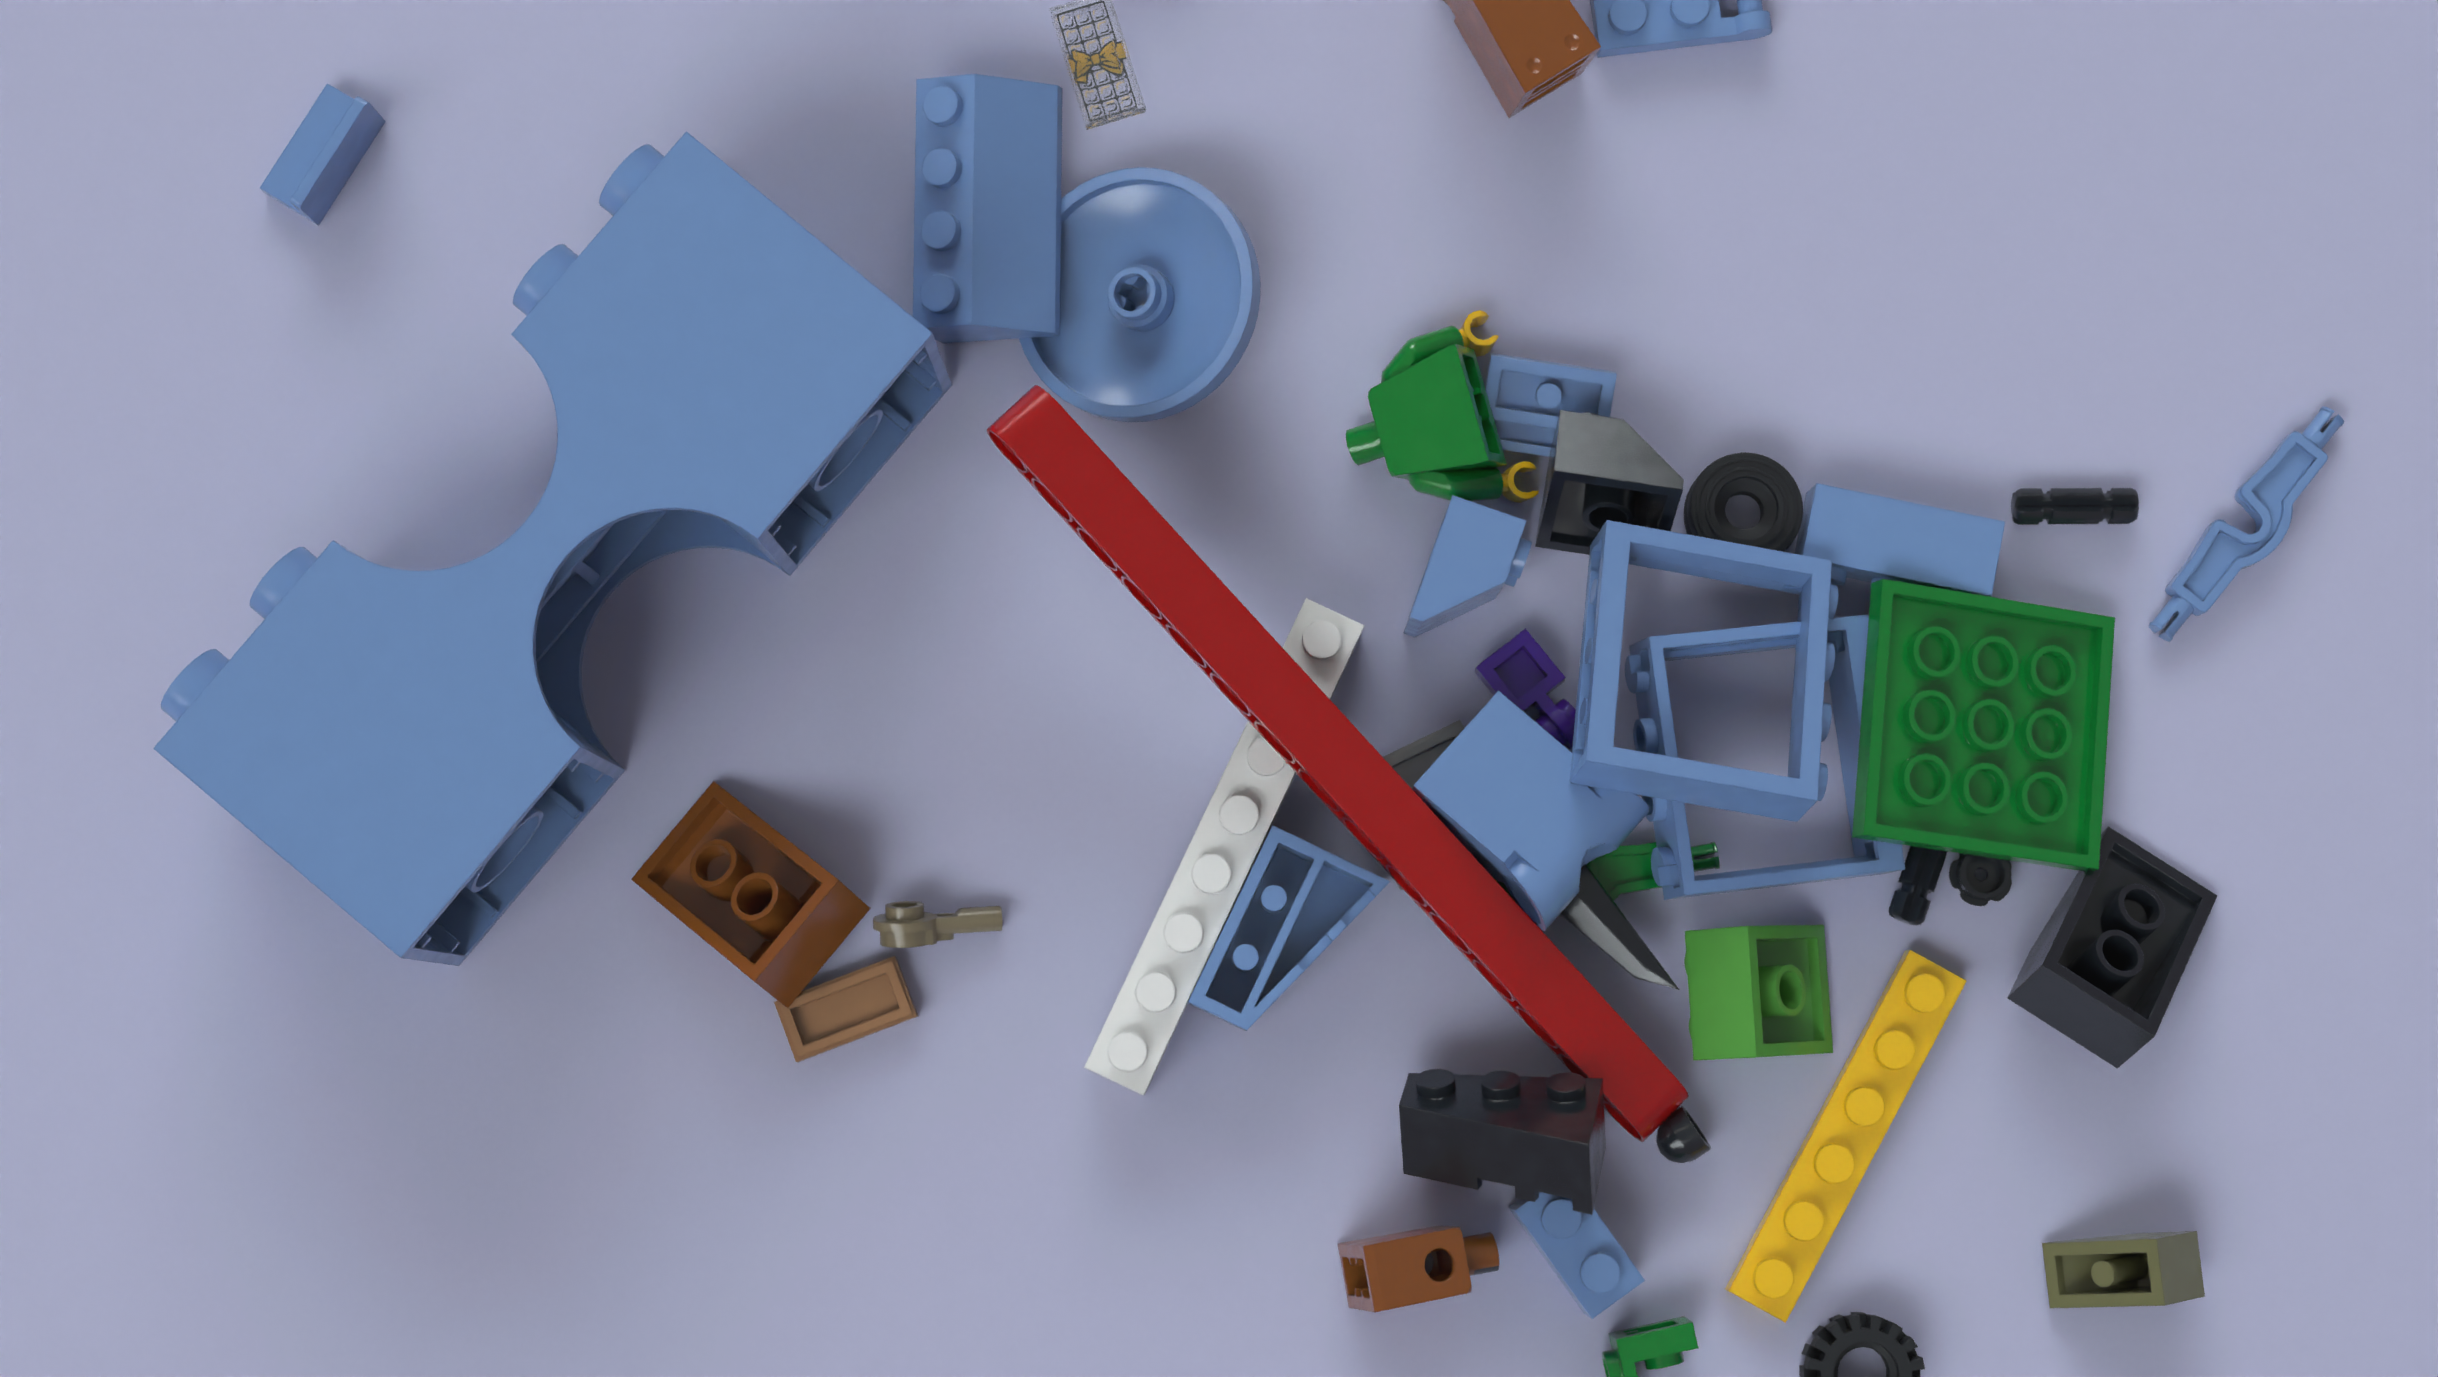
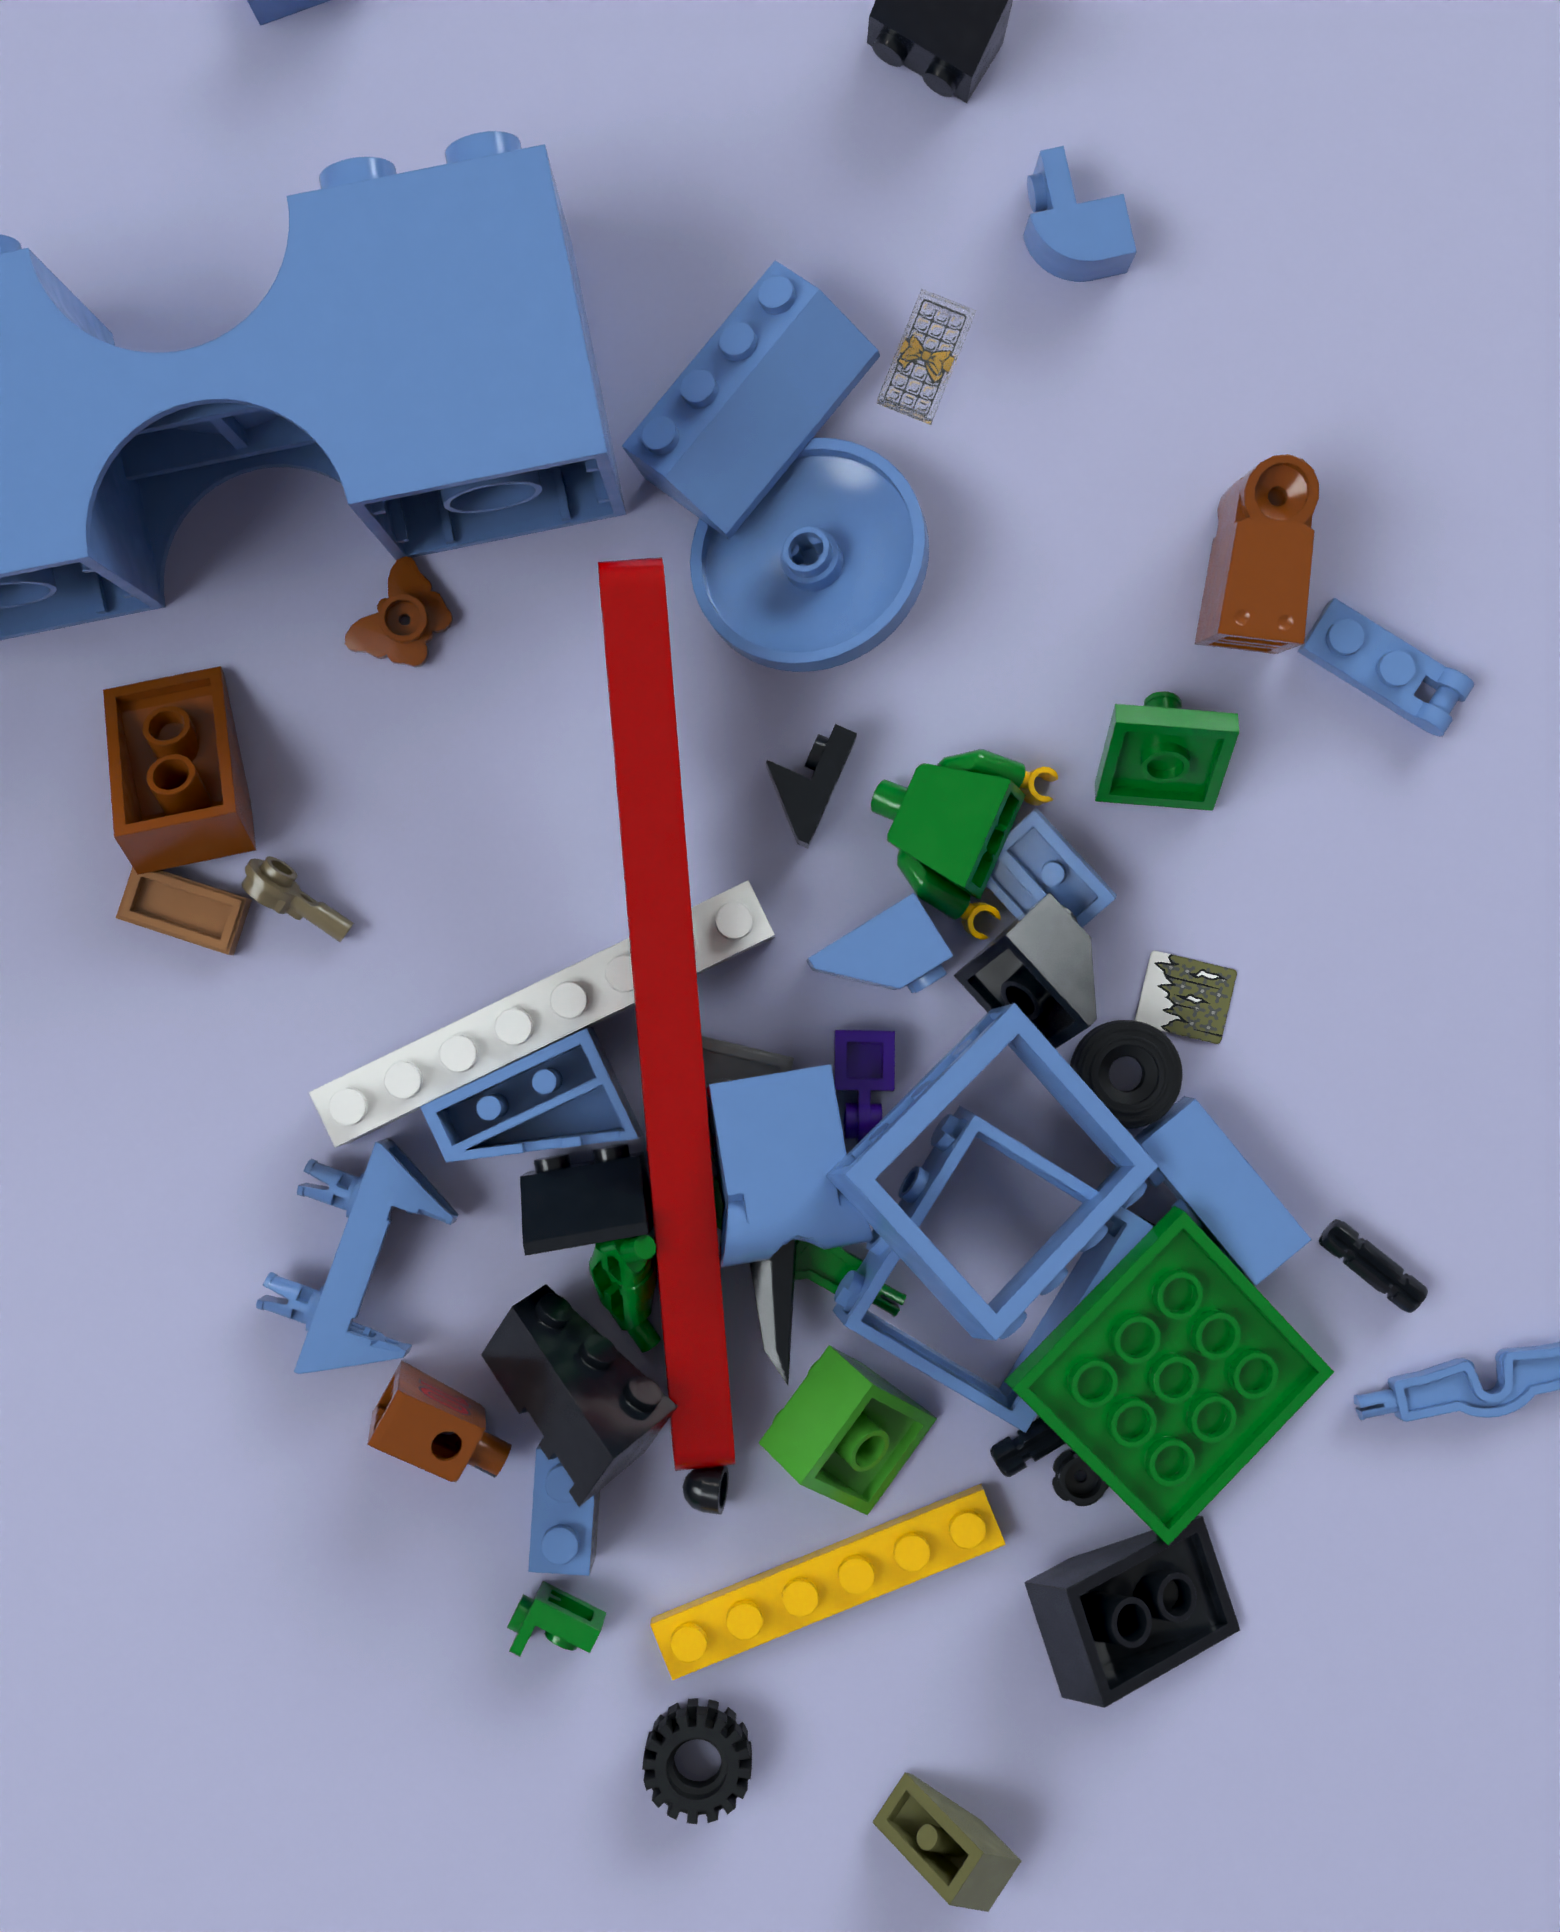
camera: 40 degrees right, 5 degrees up
(832, 643) = (409, 596): none -> dark orange animal
(1248, 1238) = (329, 1313): none -> medium blue hose
(1296, 497) = (807, 798): none -> black slope
(1386, 972) = (585, 1201): none -> black slope
(1472, 1016) = (625, 1283): none -> green piece
(1561, 225) = (1165, 754): none -> green tile
(1740, 409) = (1186, 996): none -> sticker

